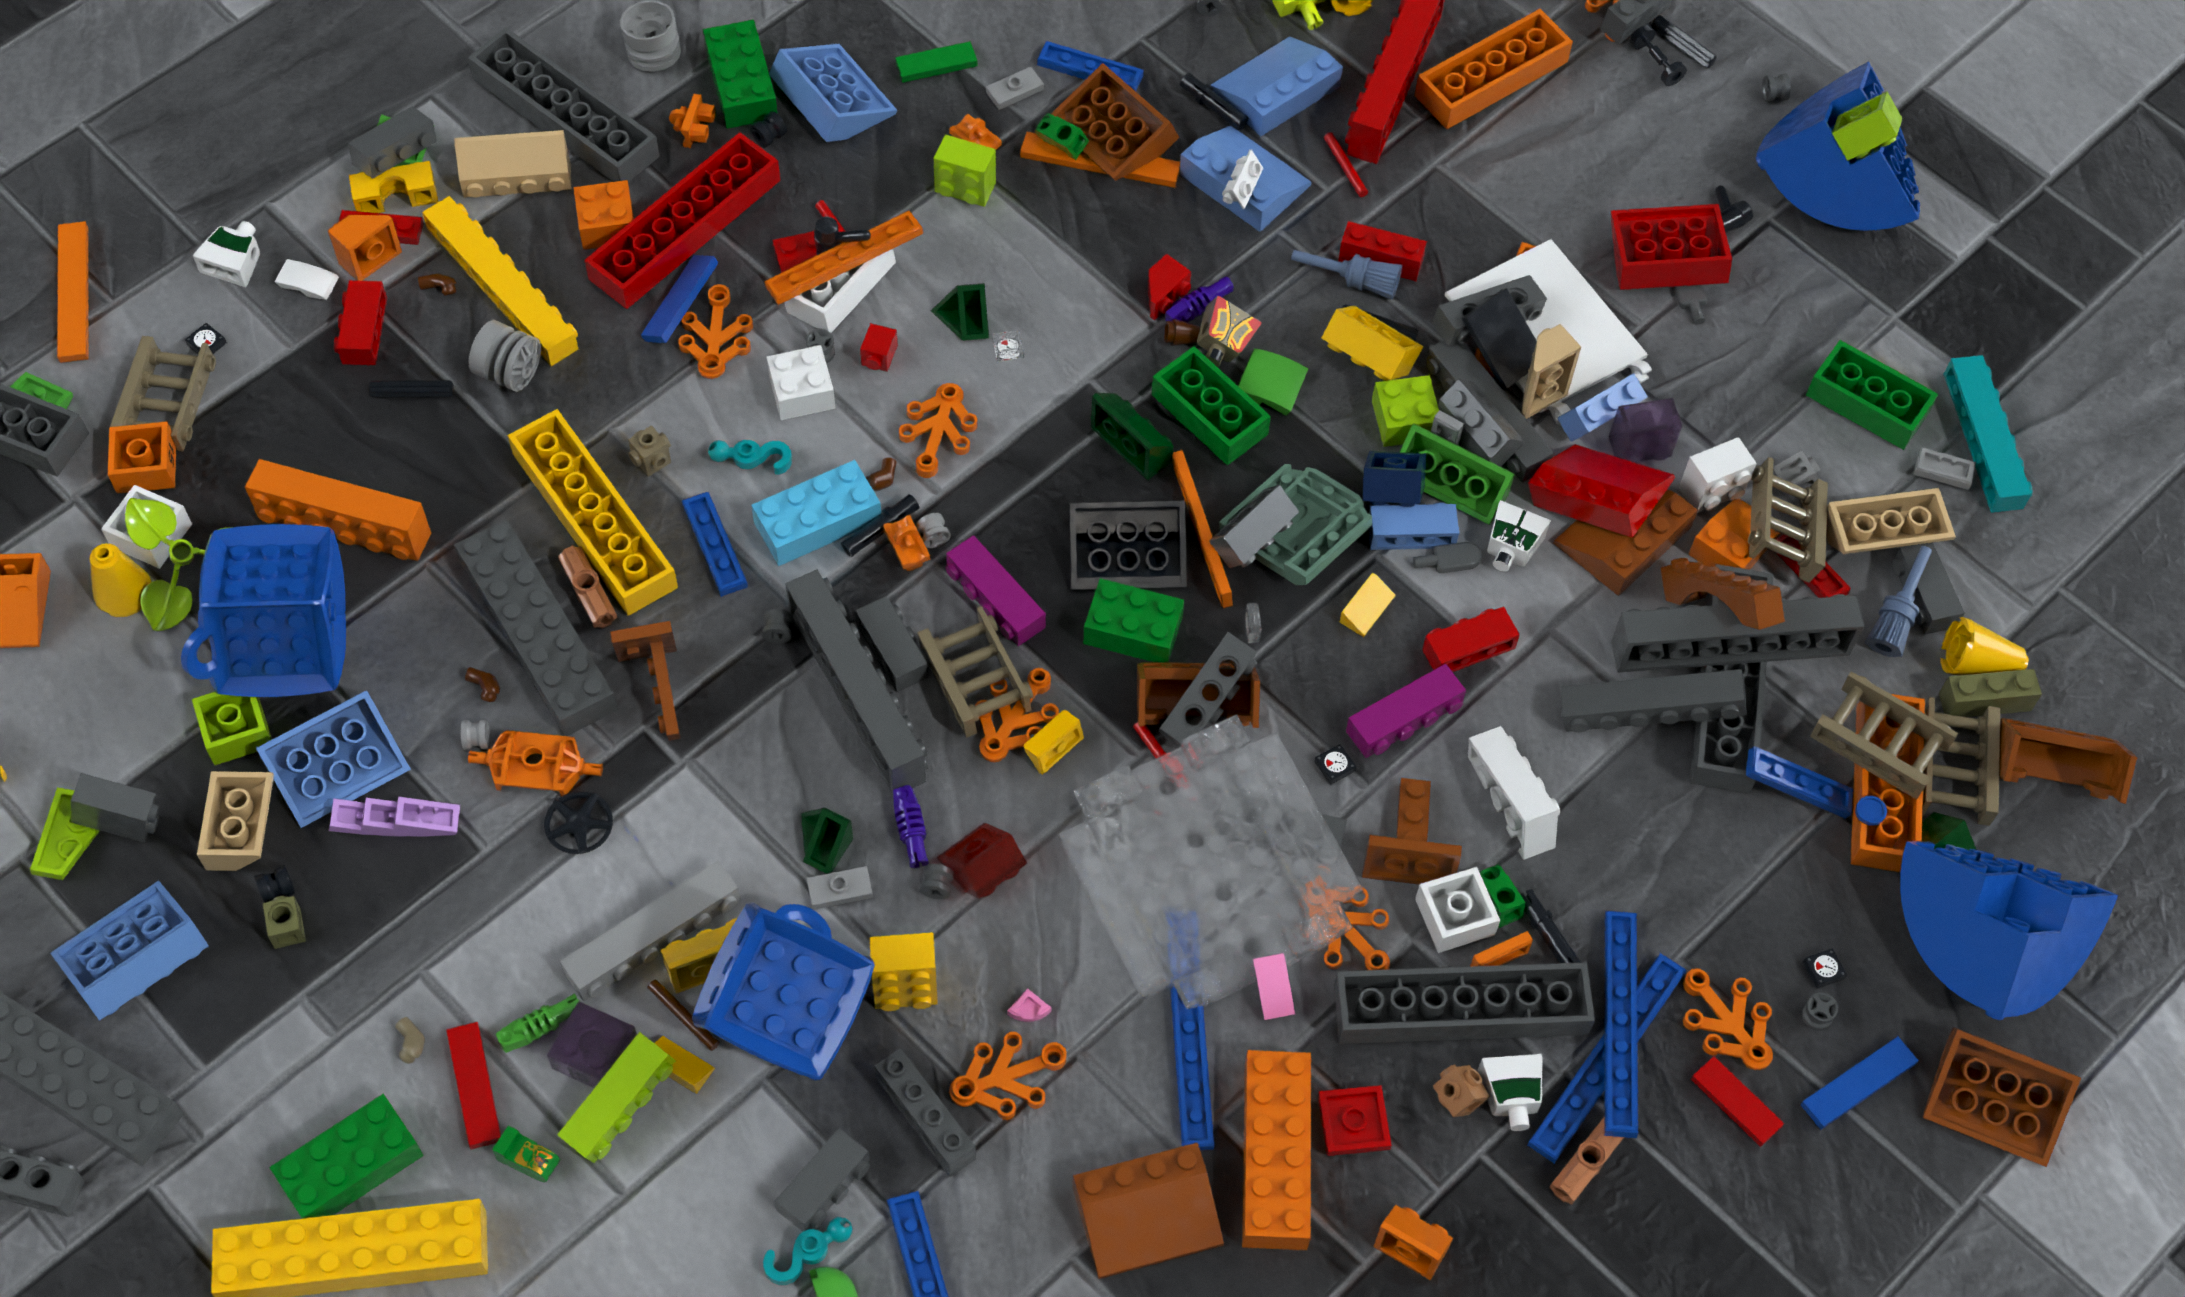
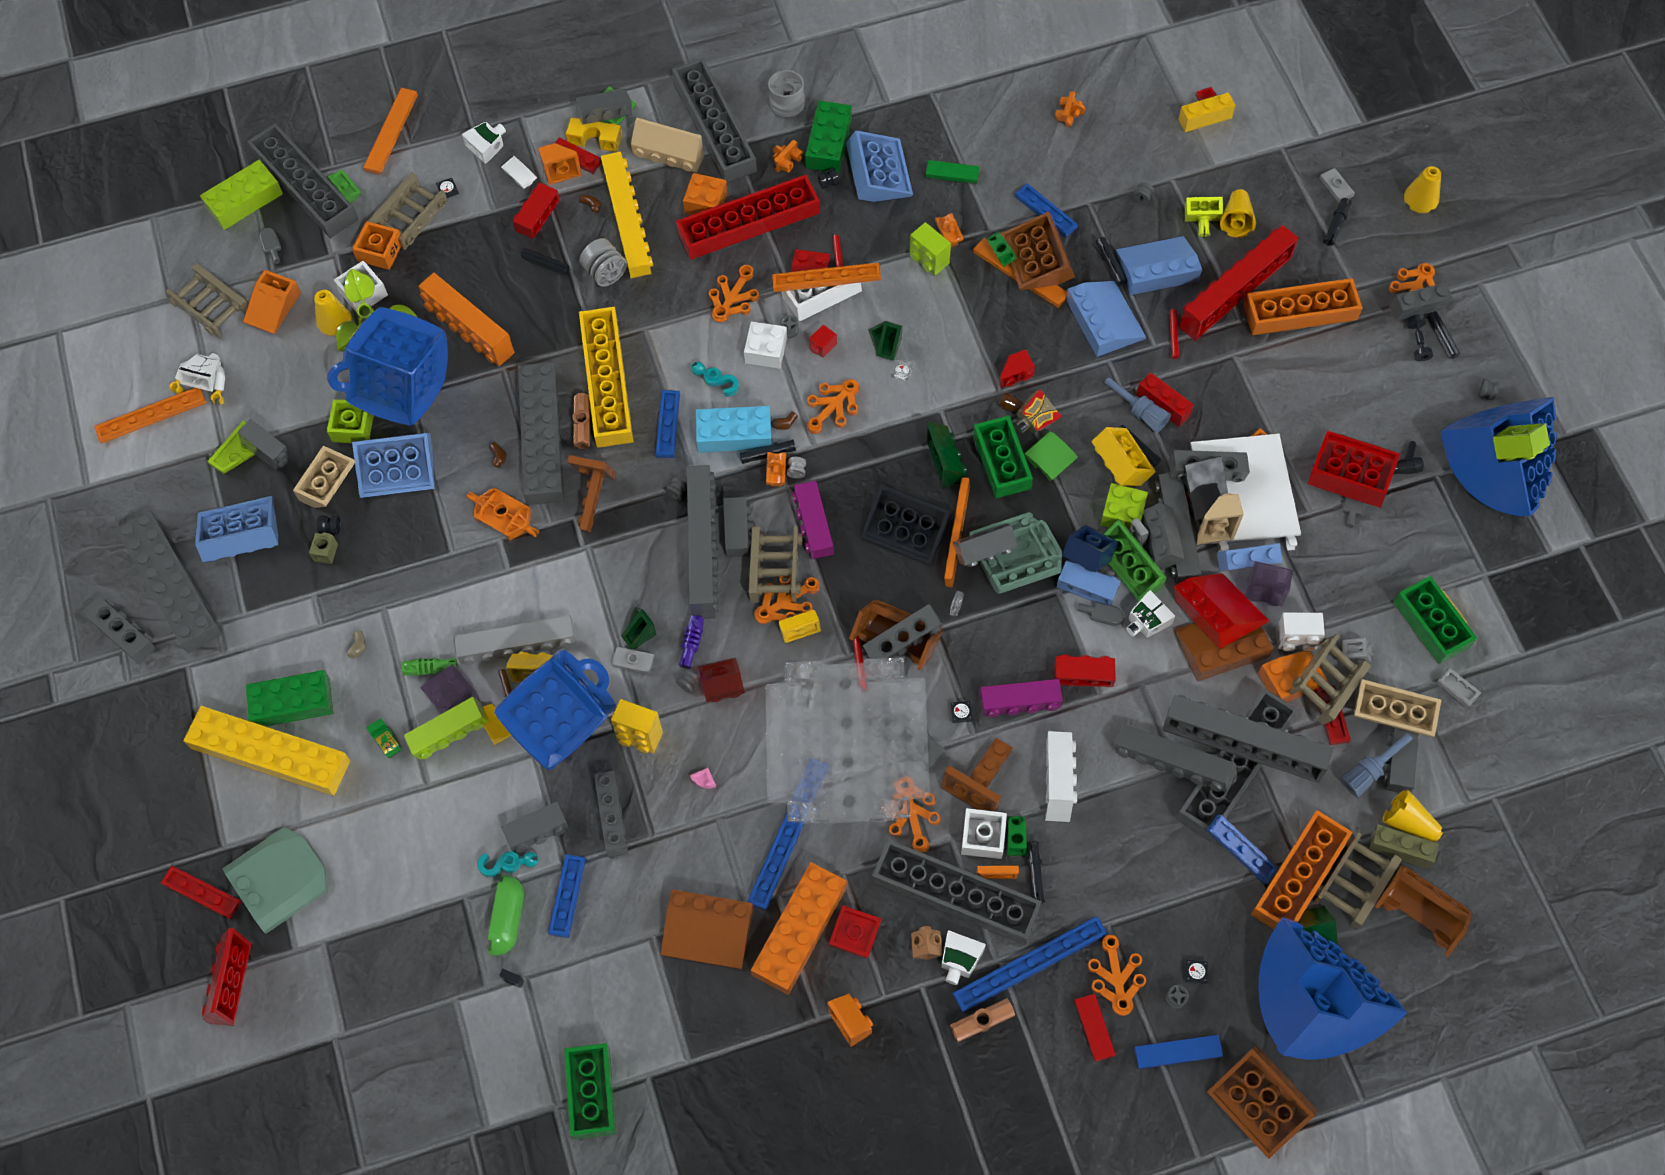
camera: 30 degrees right, 5 degrees up
(394, 818) = (411, 513): lavender slope -> none
(474, 1085) = (378, 685): red tile -> none
(475, 734) = (477, 483): light grey wheel -> none
(578, 822) = (508, 559): black wheel -> none
(649, 450) = (657, 352): dark tan brick -> none
(679, 299) = (723, 265): blue tile -> none
(828, 235) = (822, 261): black piece -> none
(1004, 1076) = (668, 812): orange plant -> none
(1014, 88) = (992, 206): light grey plate -> none
(1133, 621) = (884, 572): green brick -> none
(1195, 303) = (1026, 388): dark purple hinge -> none
(1244, 180) = (1097, 320): white hinge -> none
(1274, 986) = (847, 830): bright pink slope -> none
(1367, 605) = (1033, 621): yellow slope -> none
(1620, 1025) = (1045, 948): blue tile -> none
(1751, 600) = (1257, 717): dark orange arch -> none
(1870, 756) = (1298, 860): dark tan fence -> none
(1871, 810) = (1275, 887): blue piece -> none
(1987, 434) = (1501, 676): teal brick -> none

